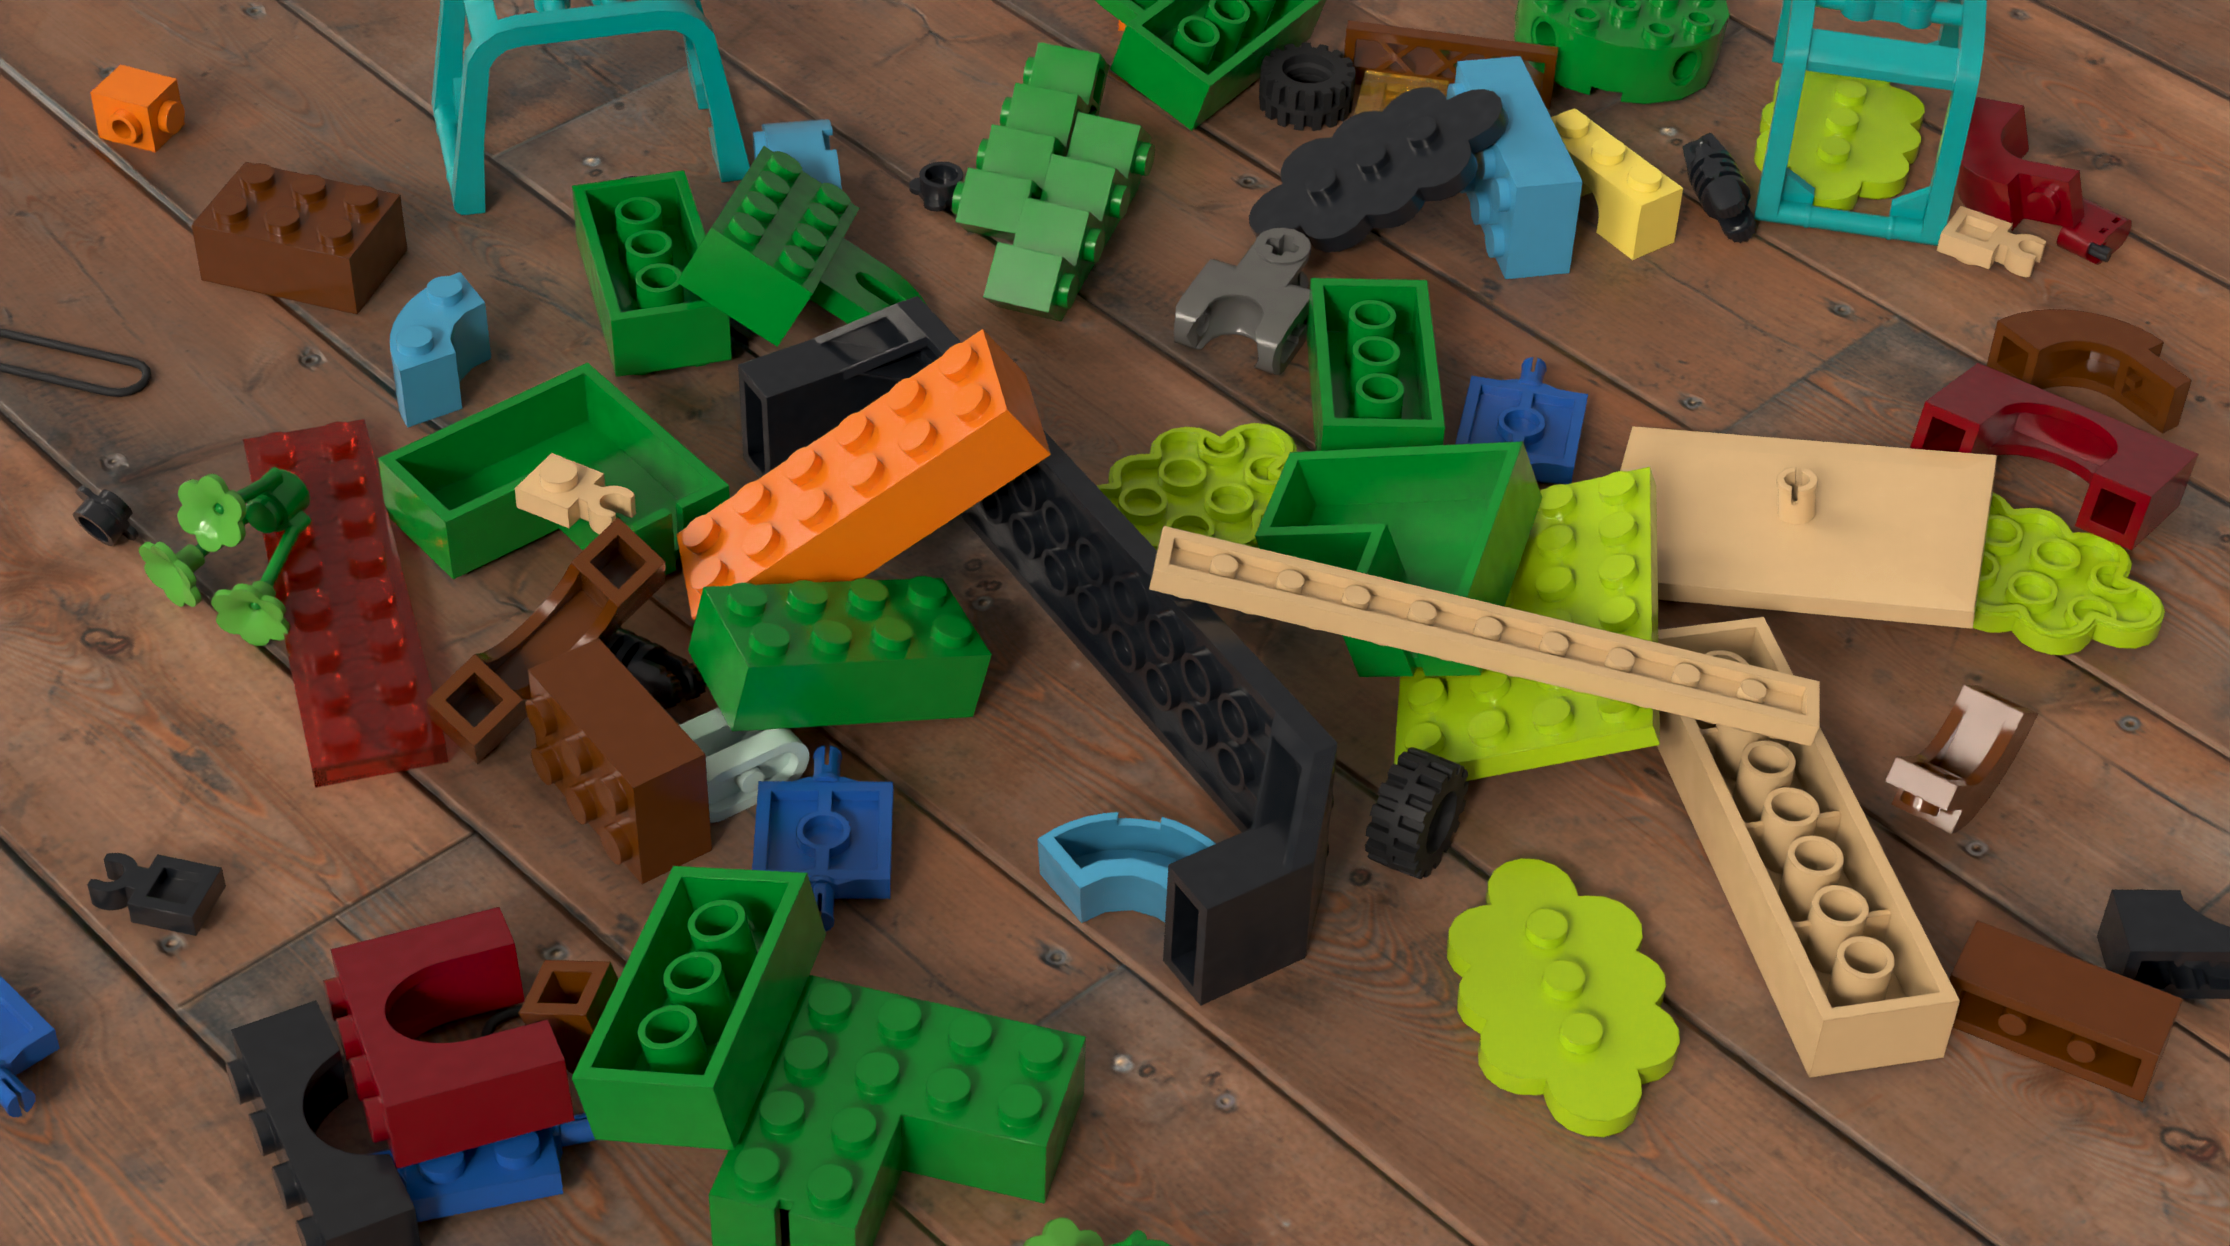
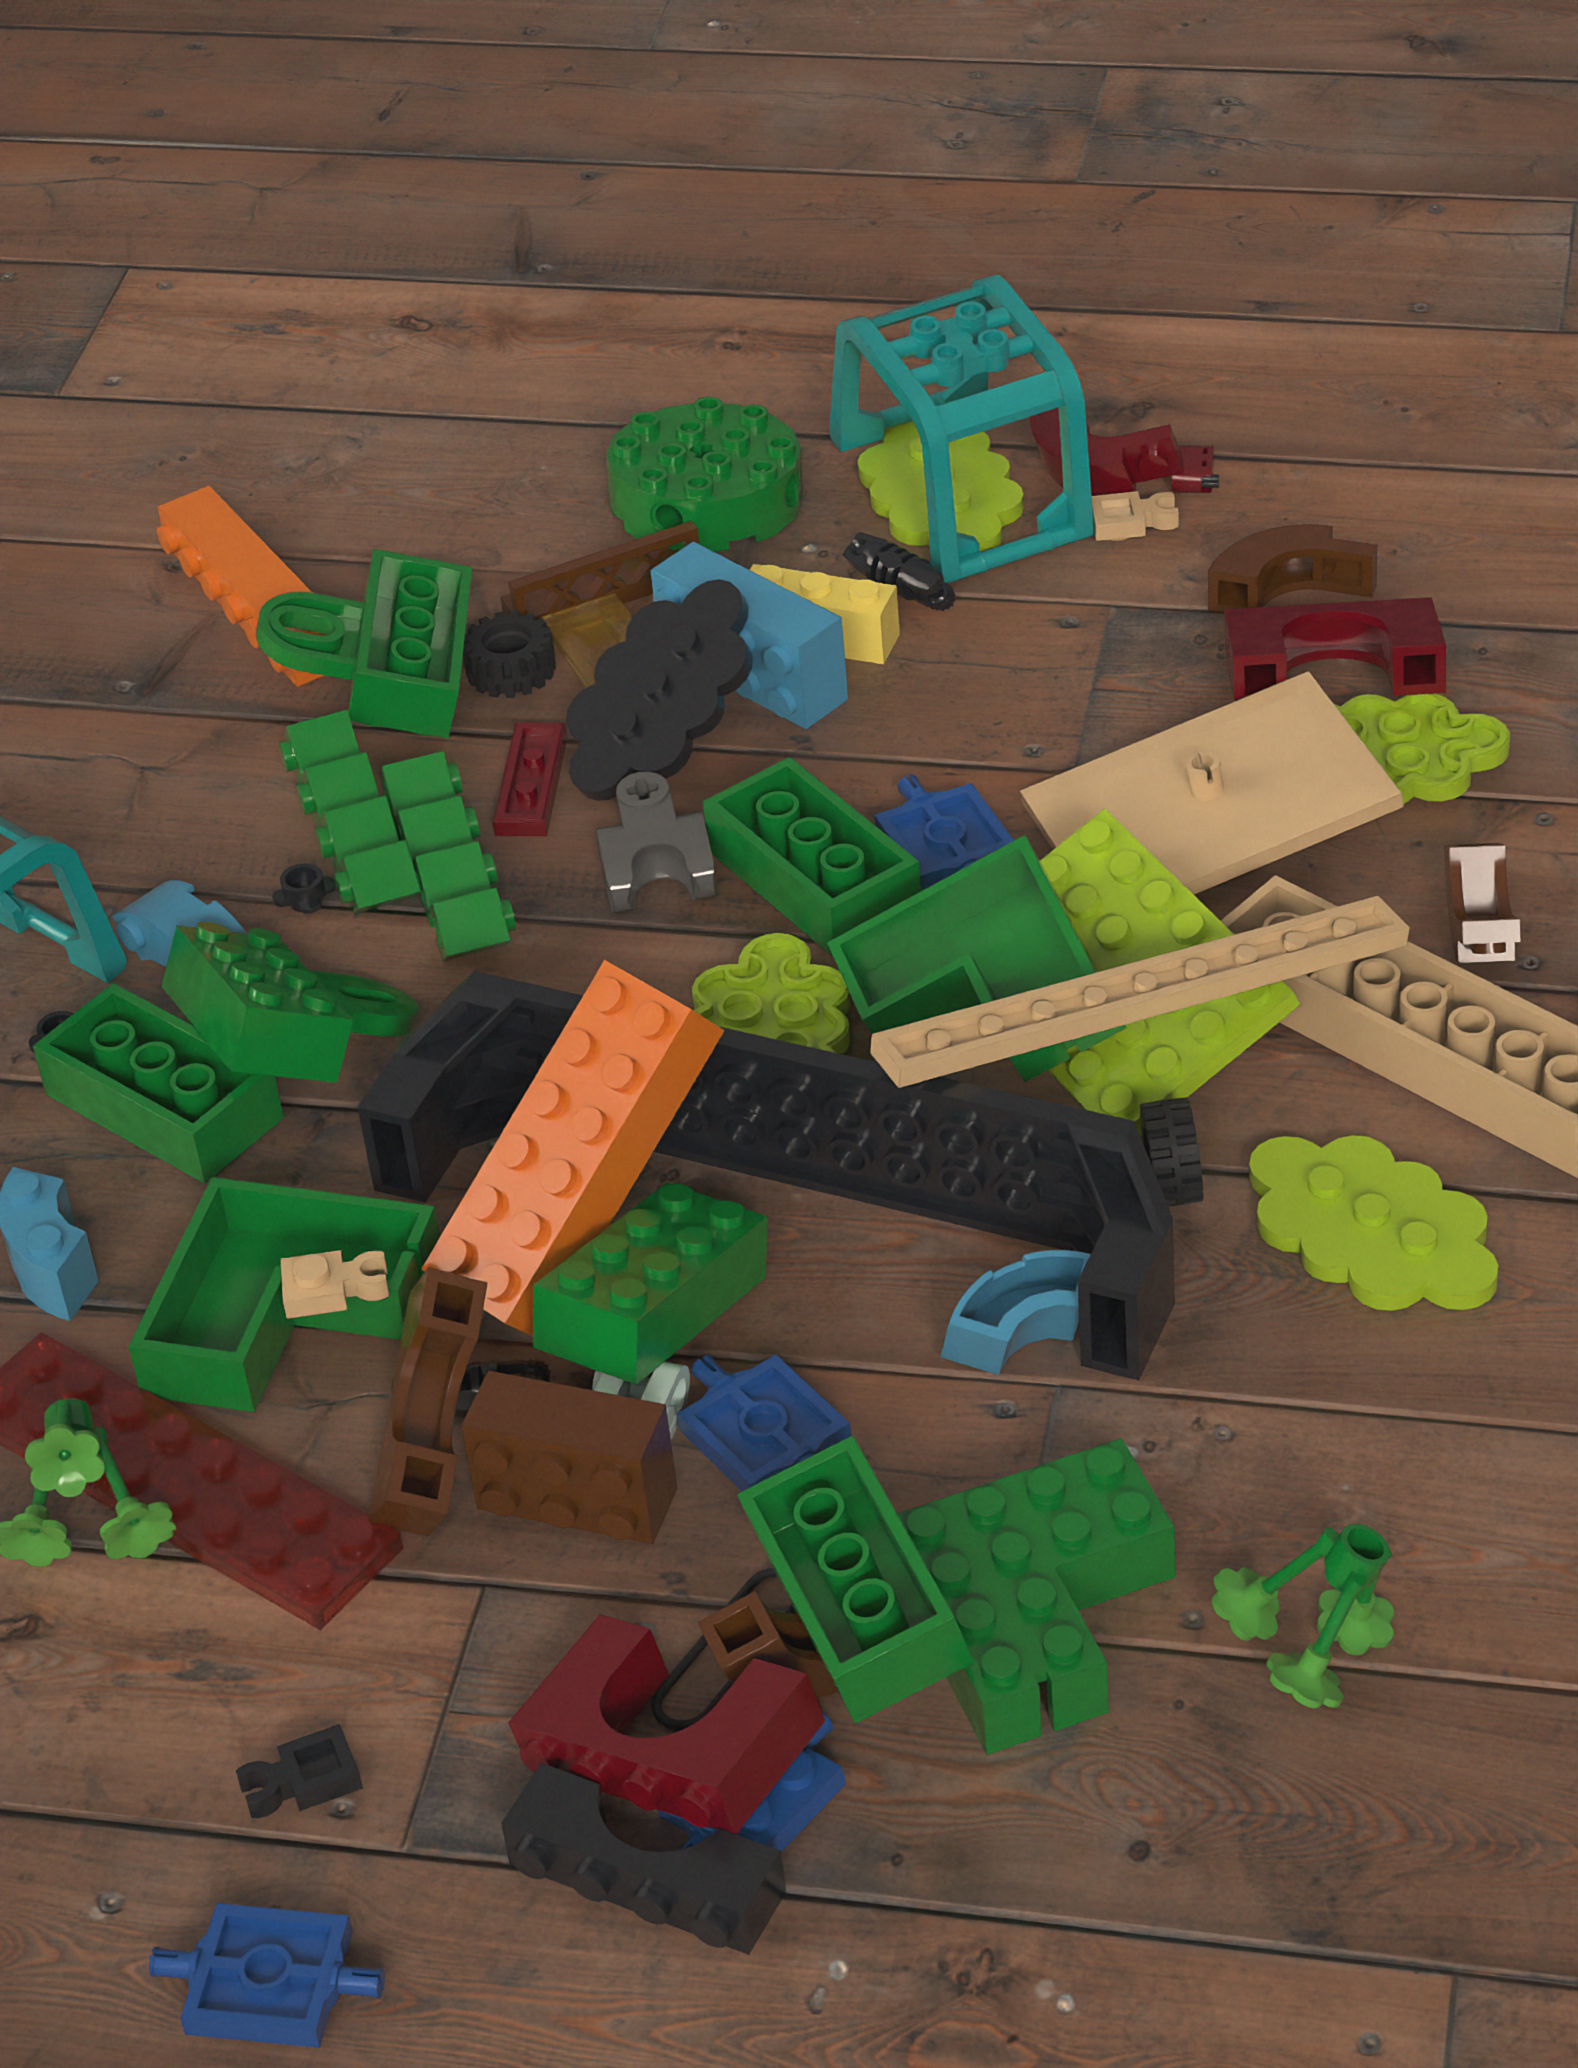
camera: 30 degrees left, 0 degrees up
(1217, 198) = (530, 779): none -> dark red tile

